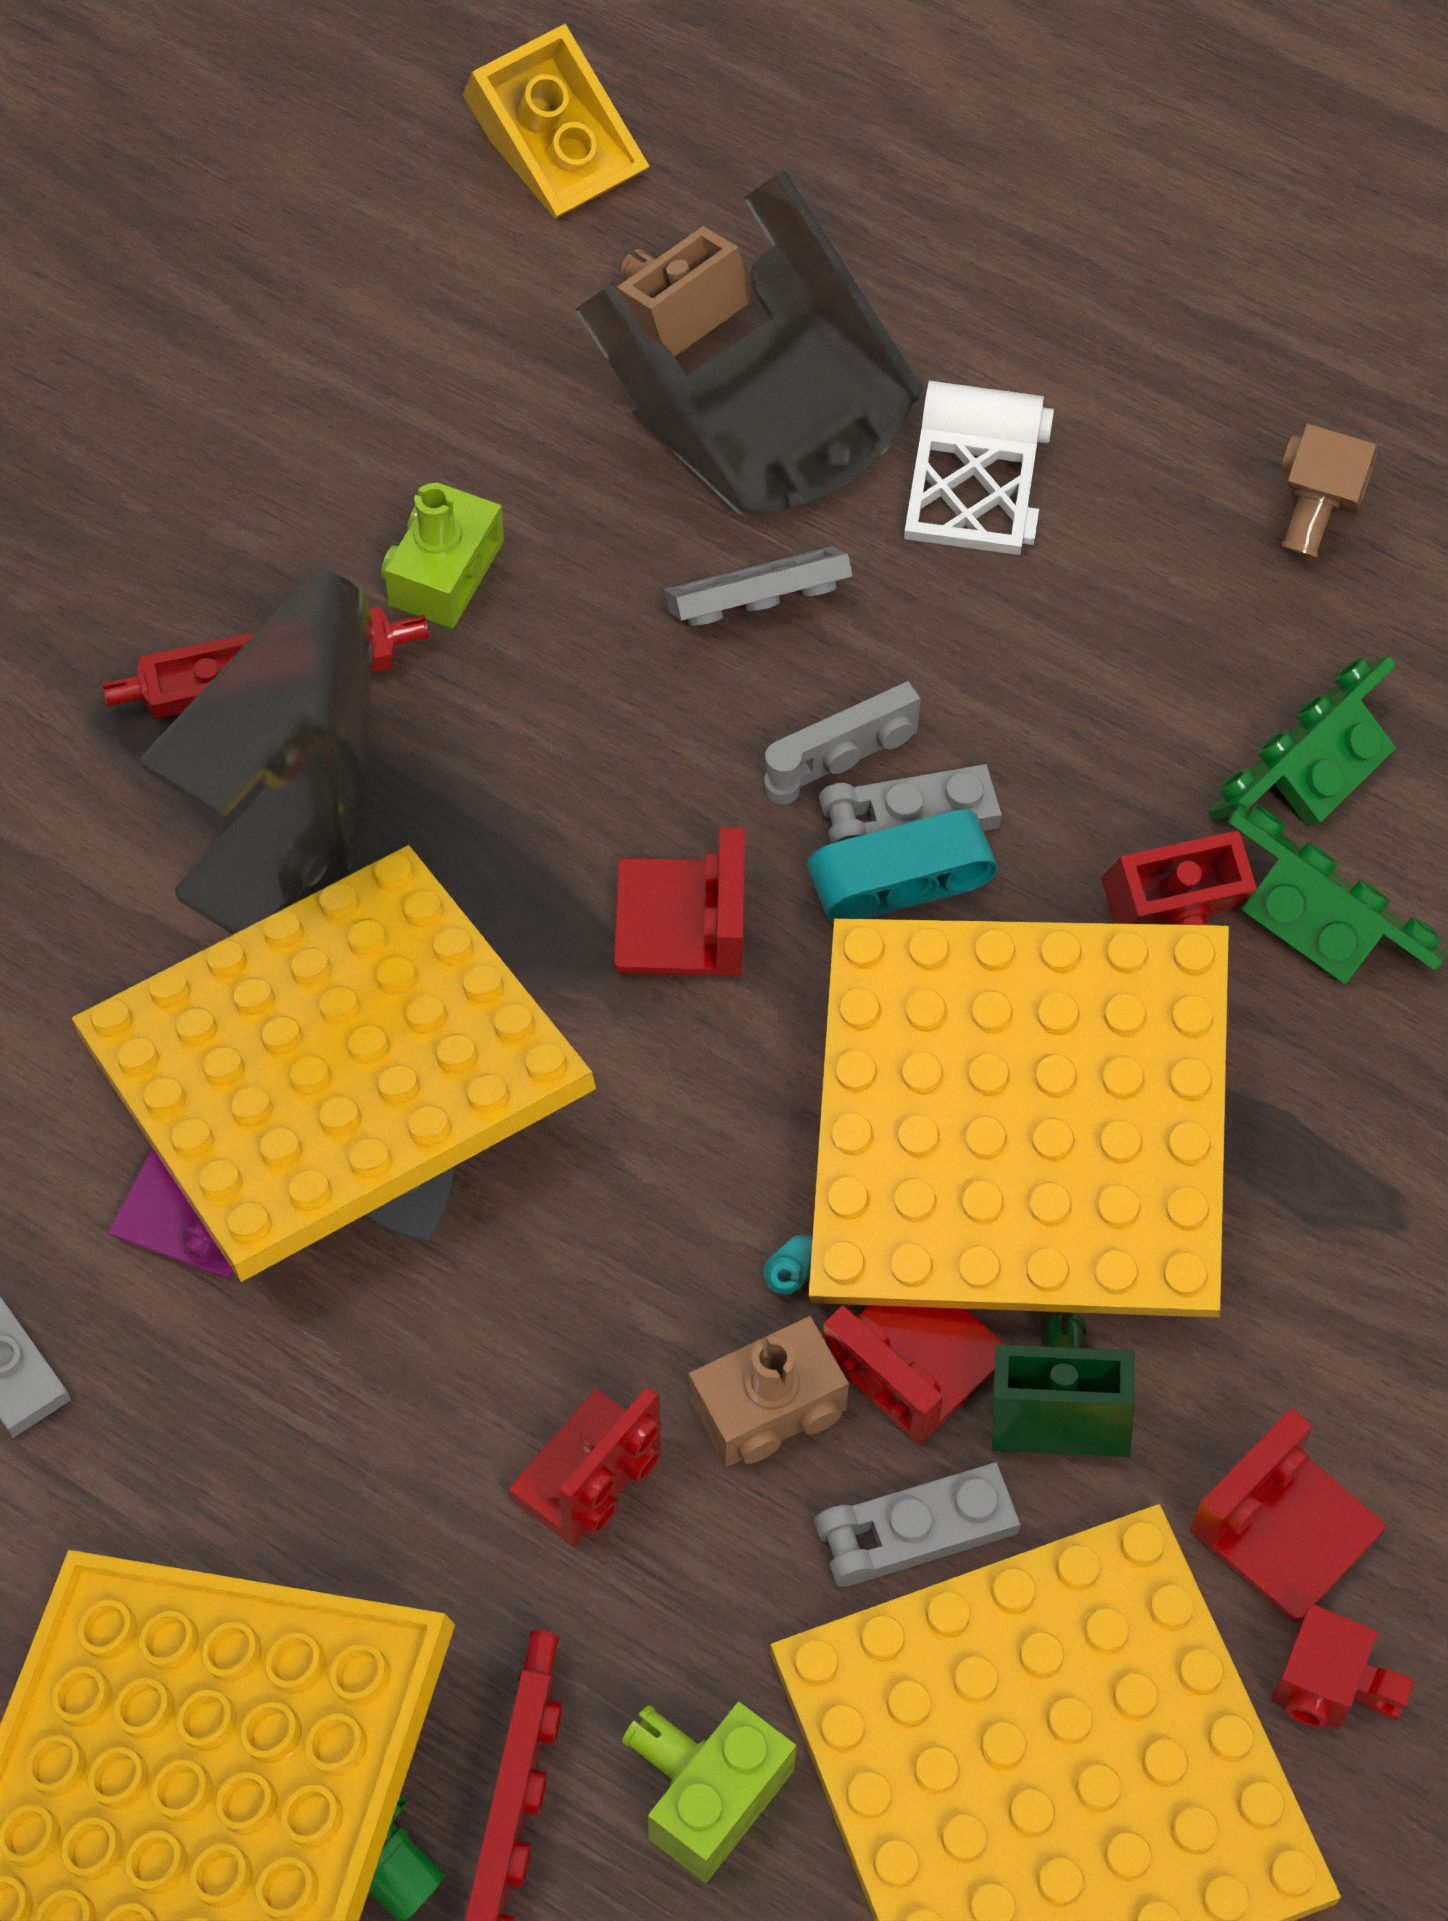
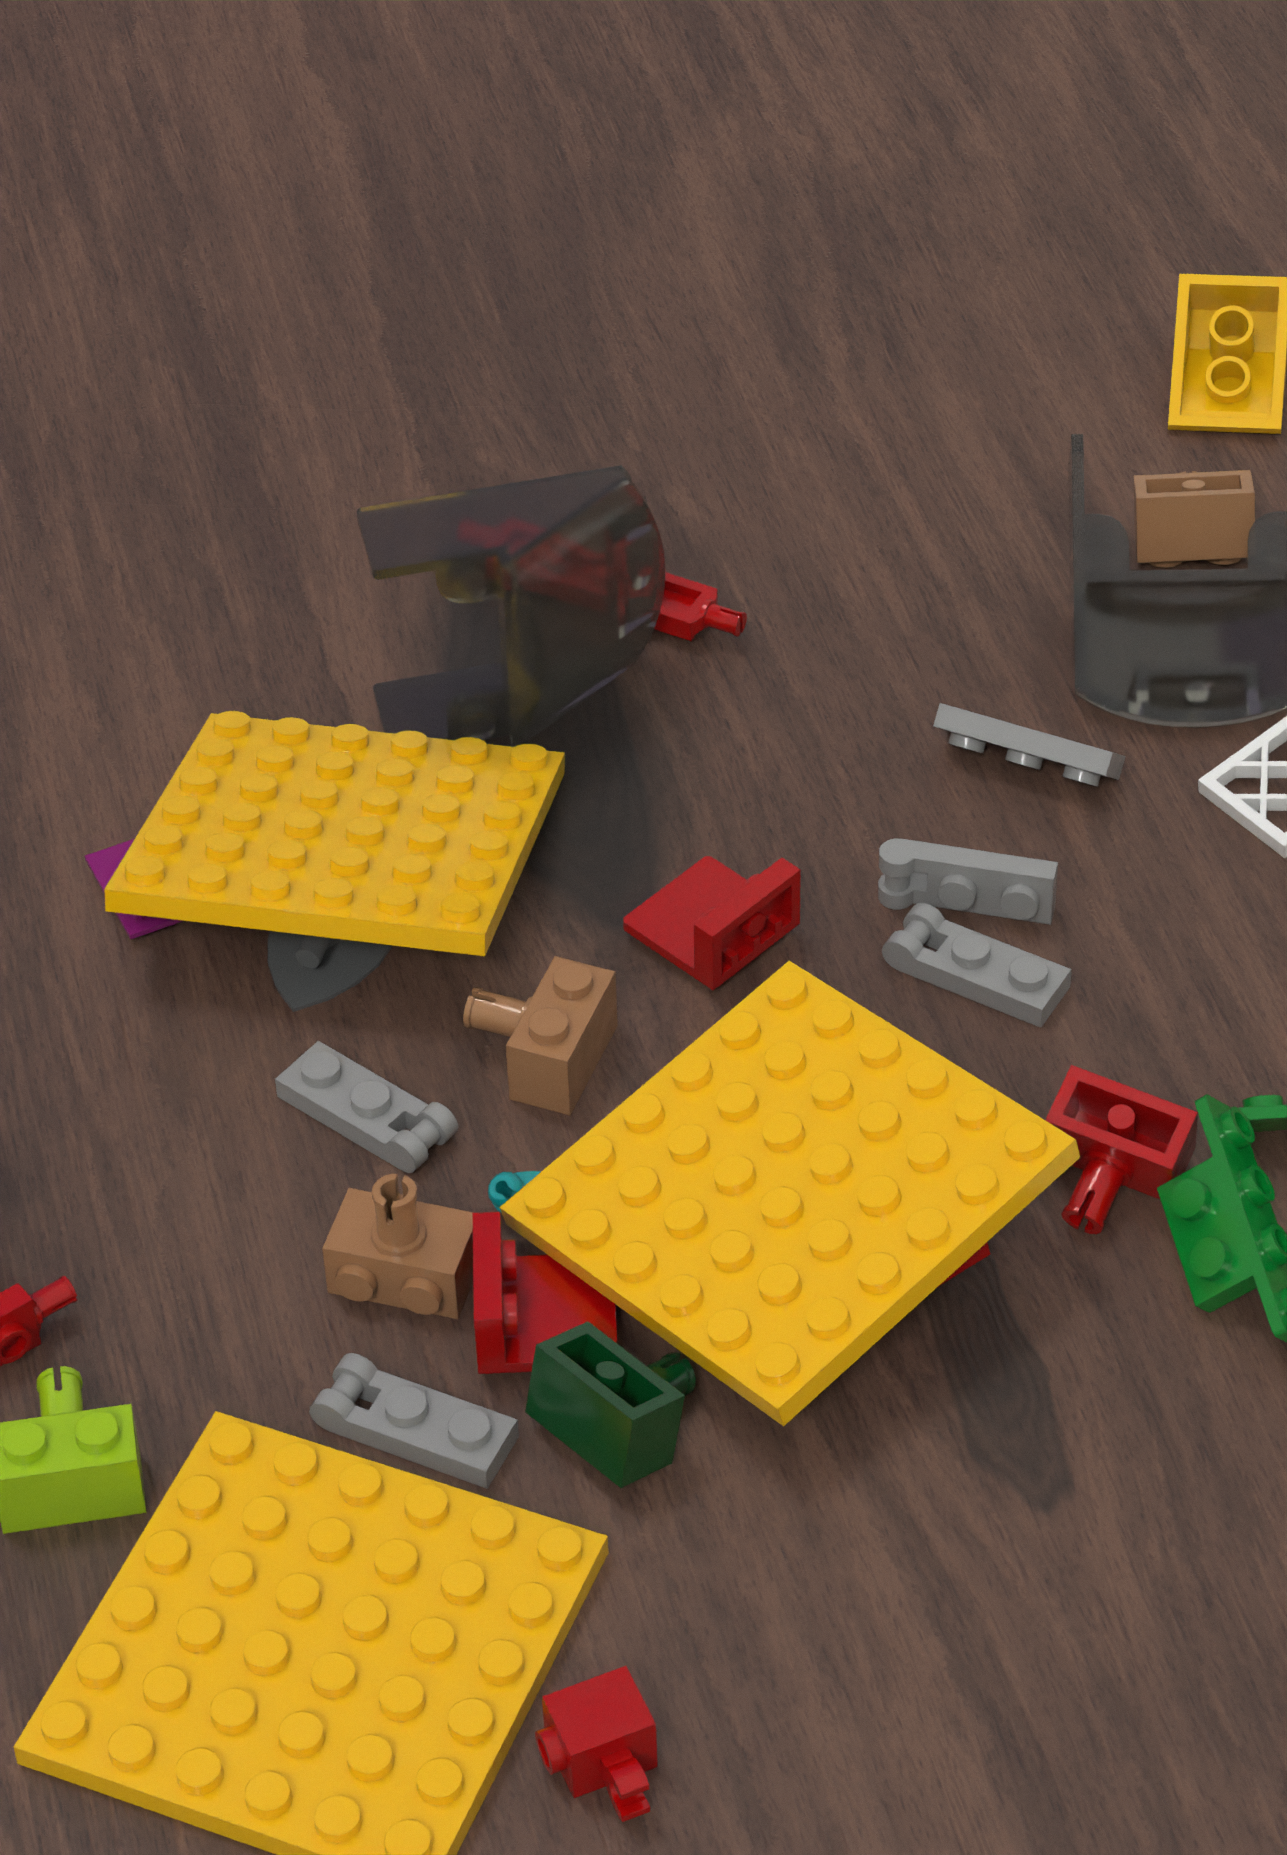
camera: 45 degrees right, 15 degrees down
(443, 553) = (809, 583): lime brick -> none
(589, 1285) = (365, 1107): none -> light grey plate
(590, 1463) = (224, 1205): red bracket -> none
(680, 1106) = (552, 1034): none -> medium nougat brick
(902, 866) = (924, 992): teal beam -> none
(1285, 1521) = (691, 1606): red bracket -> none

